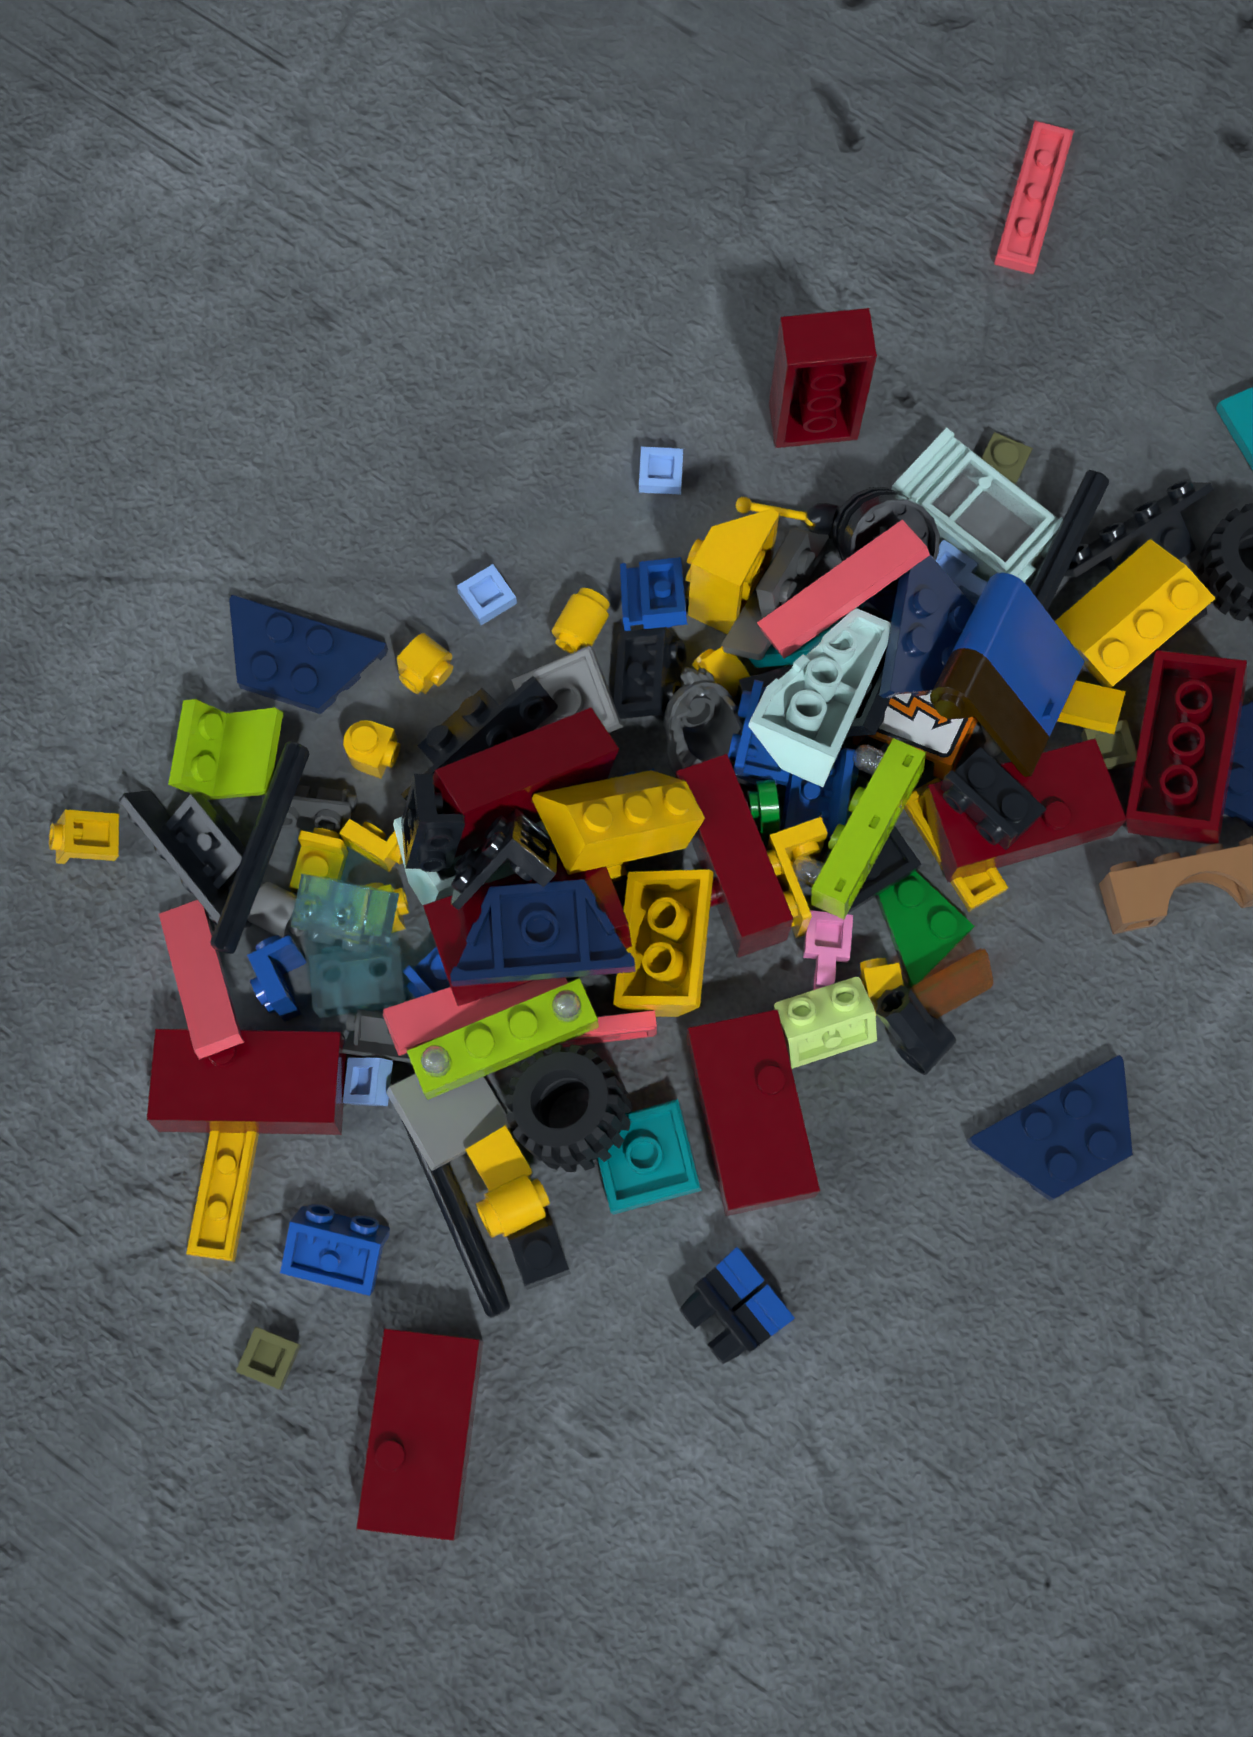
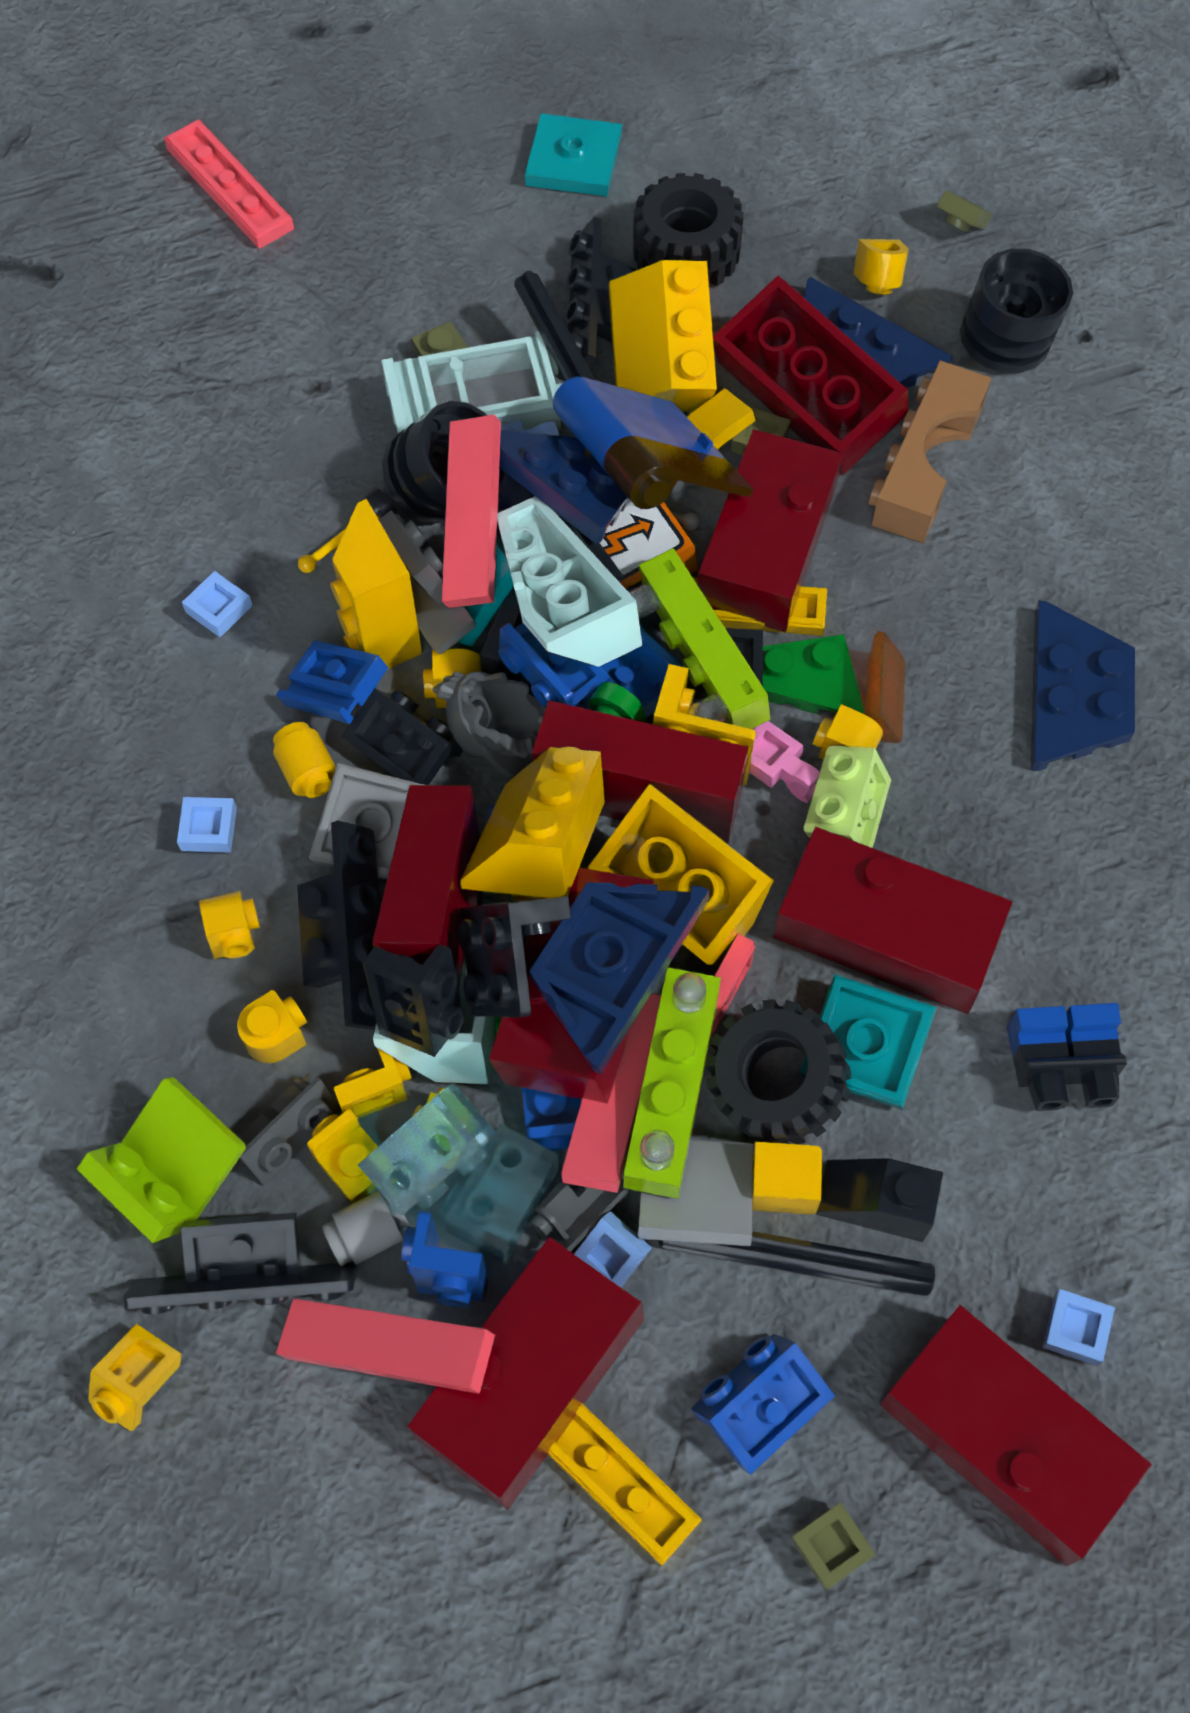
camera: 55 degrees left, 10 degrees down
(259, 848) = (297, 1192): black axle -> none
(296, 656) = (115, 1041): dark blue wing -> none
(513, 1206) = (846, 1183): yellow brick -> none
(531, 1436) = (1078, 1327): none -> light blue plate
(821, 377) = (260, 402): dark red brick -> none
(920, 1036) = (912, 734): black piece -> none
(991, 799) = (753, 530): black bracket -> none

